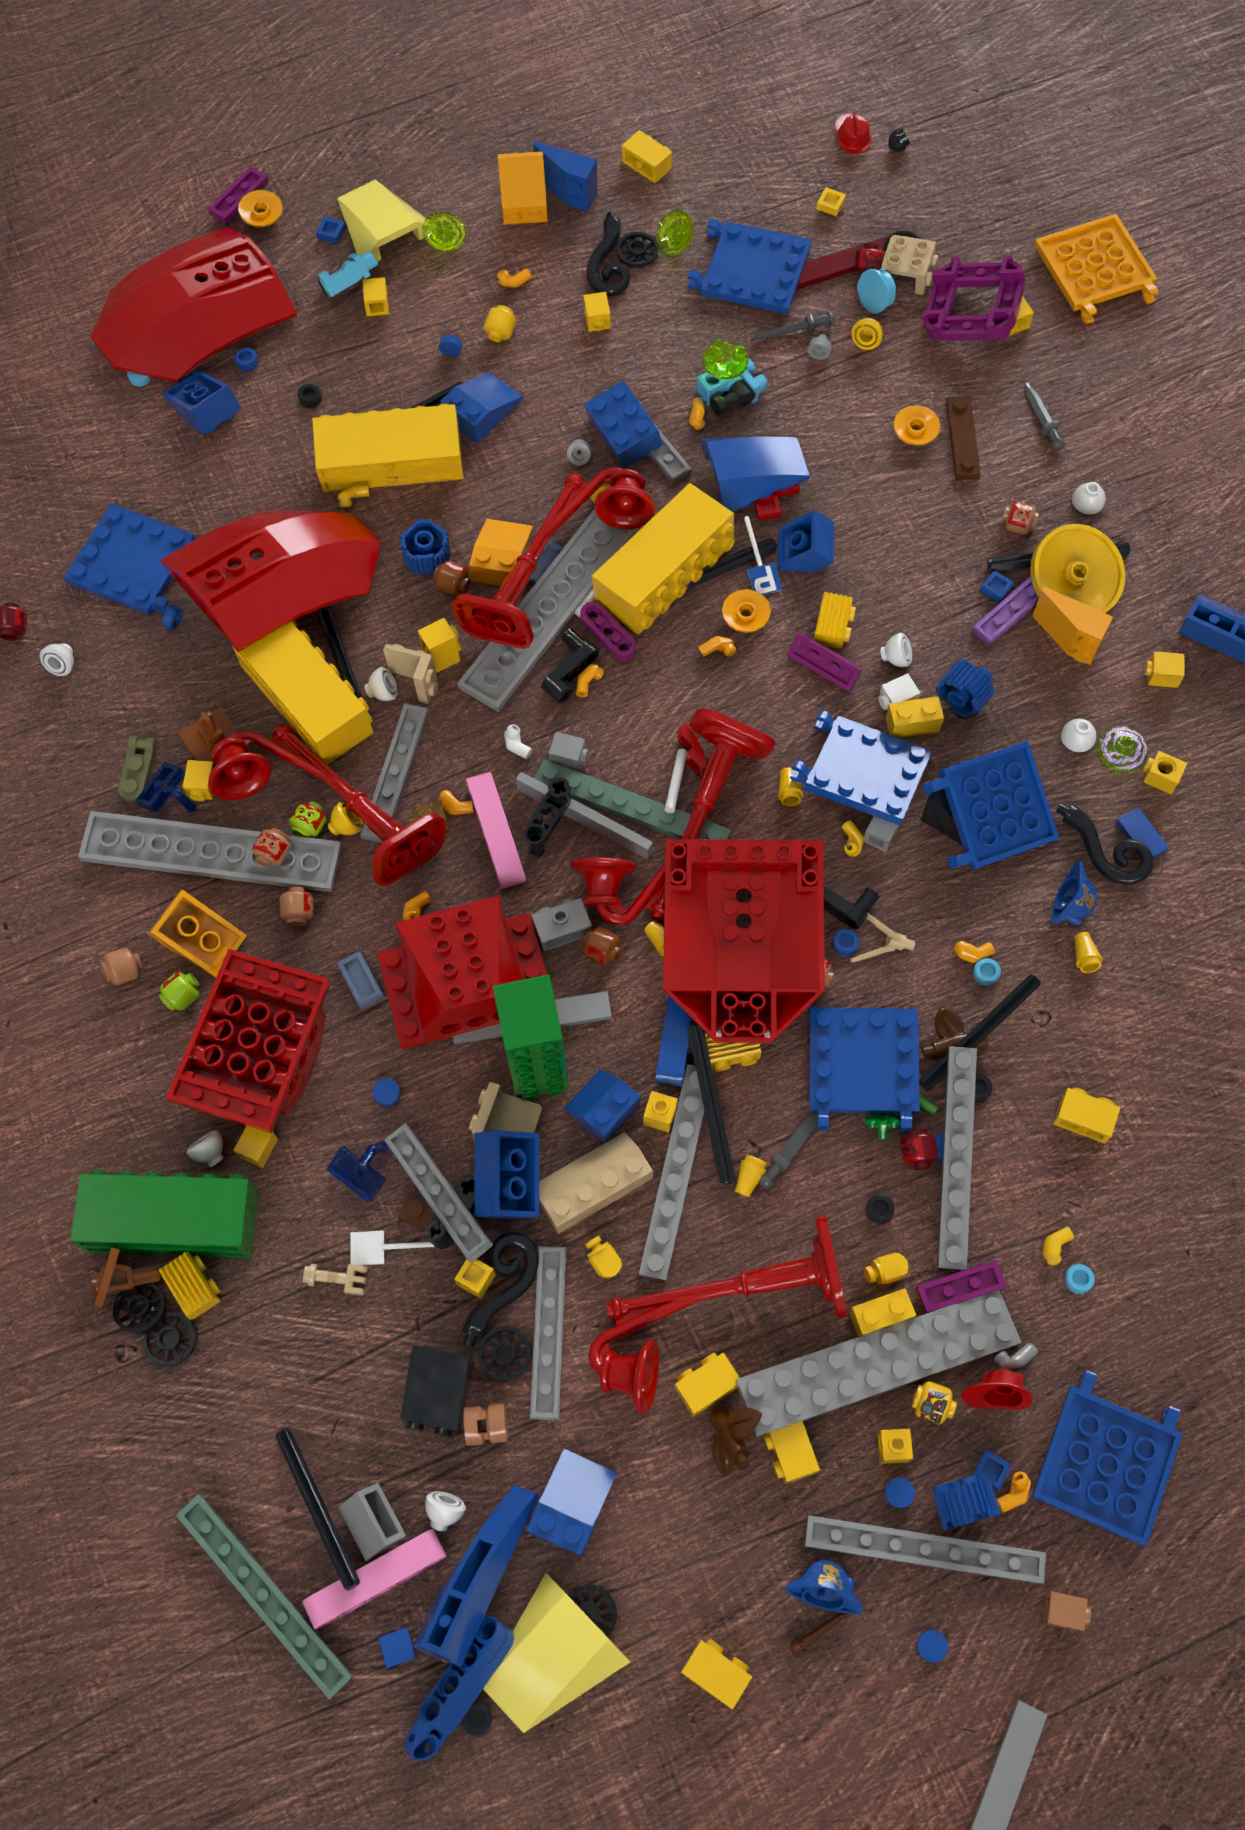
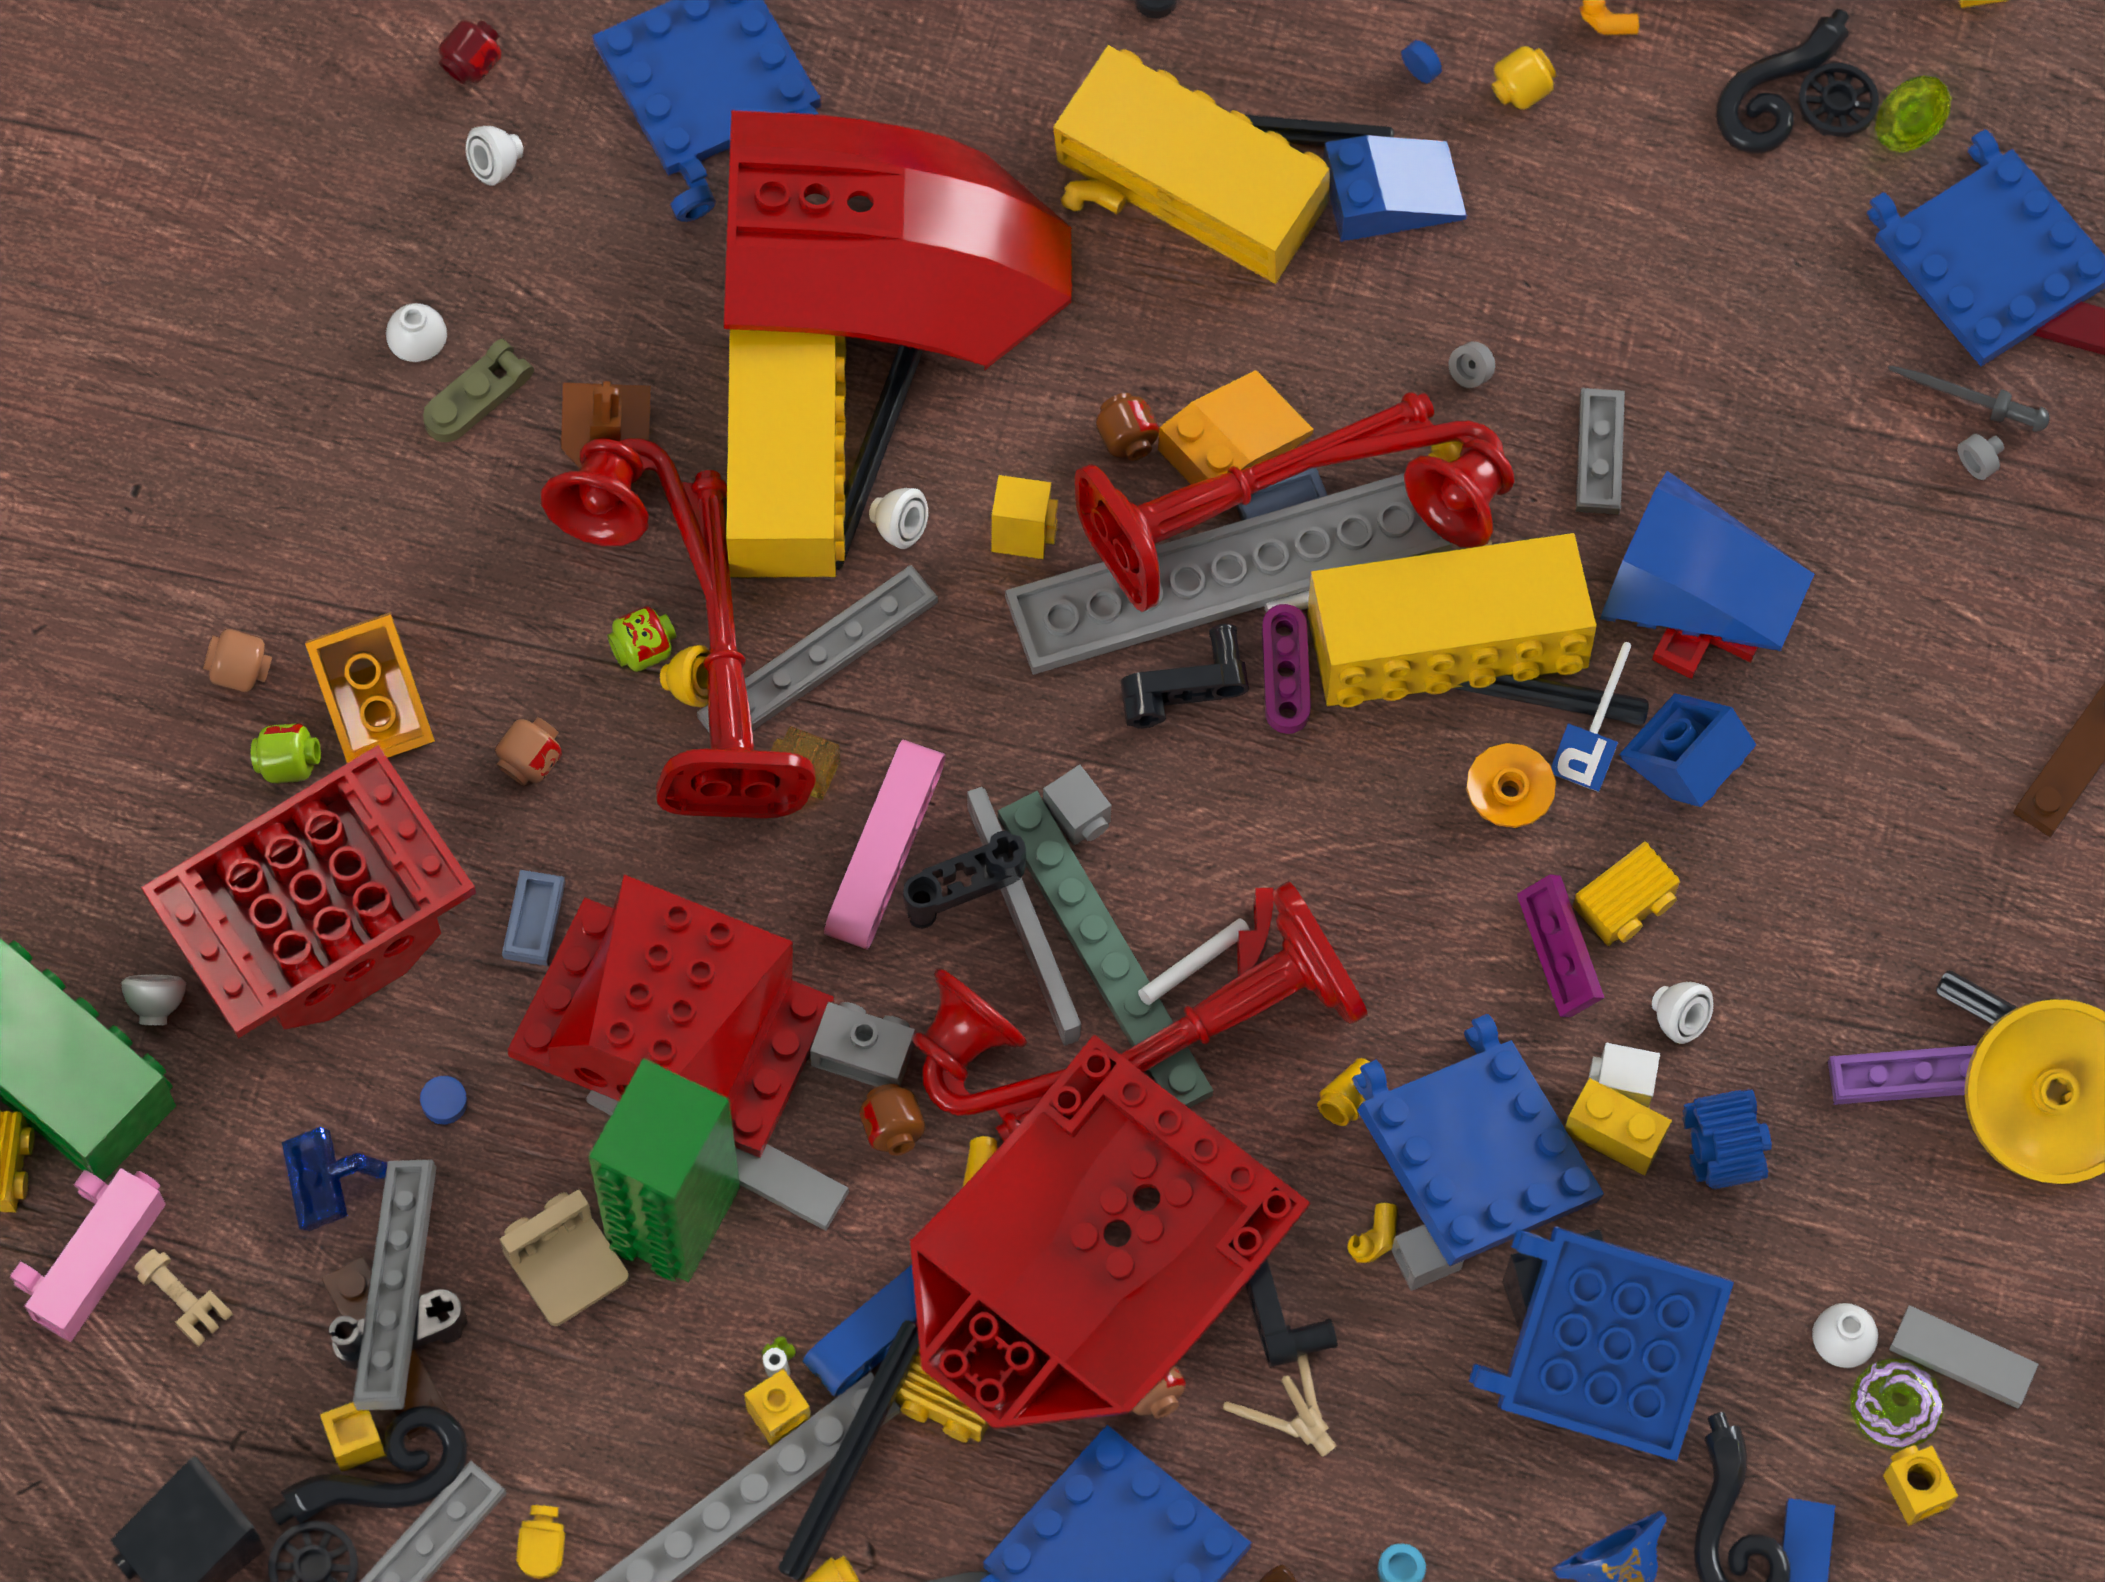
camera: 35 degrees right, 0 degrees up
(85, 762) = (416, 332): none -> white brick
(161, 786) = (487, 445): clear blue plate -> none
(196, 780) = (536, 466): yellow brick -> none
(205, 851) = (480, 587): light grey plate -> none
(255, 1146) = (216, 1043): yellow brick -> none
(271, 847) = (557, 642): nougat head -> none
(277, 1290) = (94, 1253): none -> bright pink brick
(369, 1247) = (255, 1291): white piece -> none
(413, 906) = (685, 870): light orange arm -> none
(416, 665) = (966, 546): tan bracket -> none
(424, 547) = (1125, 352): blue brick -> none
(453, 806) = (856, 763): light orange arm -> none
(506, 1175) = (499, 1331): blue brick -> none
(513, 742) = (1016, 736): white arm -> none
(585, 677) = (1195, 714): light orange arm -> none
(593, 1182) = (609, 1431): tan slope -> none
(597, 311) = (1685, 160): yellow brick -> none
(603, 1105) = (711, 1340): blue slope -> none
(623, 424) = (1570, 368): blue brick -> none
(642, 1089) = (777, 1356): none -> white arm
(697, 414) = (1701, 427): light orange arm -> none
(718, 643) = (1430, 804): light orange arm -> none
(725, 359) = (1802, 376): clear neon green dish -> none
(741, 389) = (1801, 417): hips -> none
(845, 942) = (1238, 1373): blue tile -> none
(867, 333) = (2073, 485): yellow brick -> none
(918, 418) = (2022, 668): light orange dish -> none
(971, 953) = (1401, 1526): light orange arm -> none
(996, 586) = (1925, 1022): blue tile -> none
(1020, 518) = (2052, 944): nougat head -> none
(1072, 624) = (1977, 1175): light orange slope -> none
(1132, 708) = (1963, 1357): none -> light grey tile
(1165, 669) = (2062, 1334): yellow brick -> none

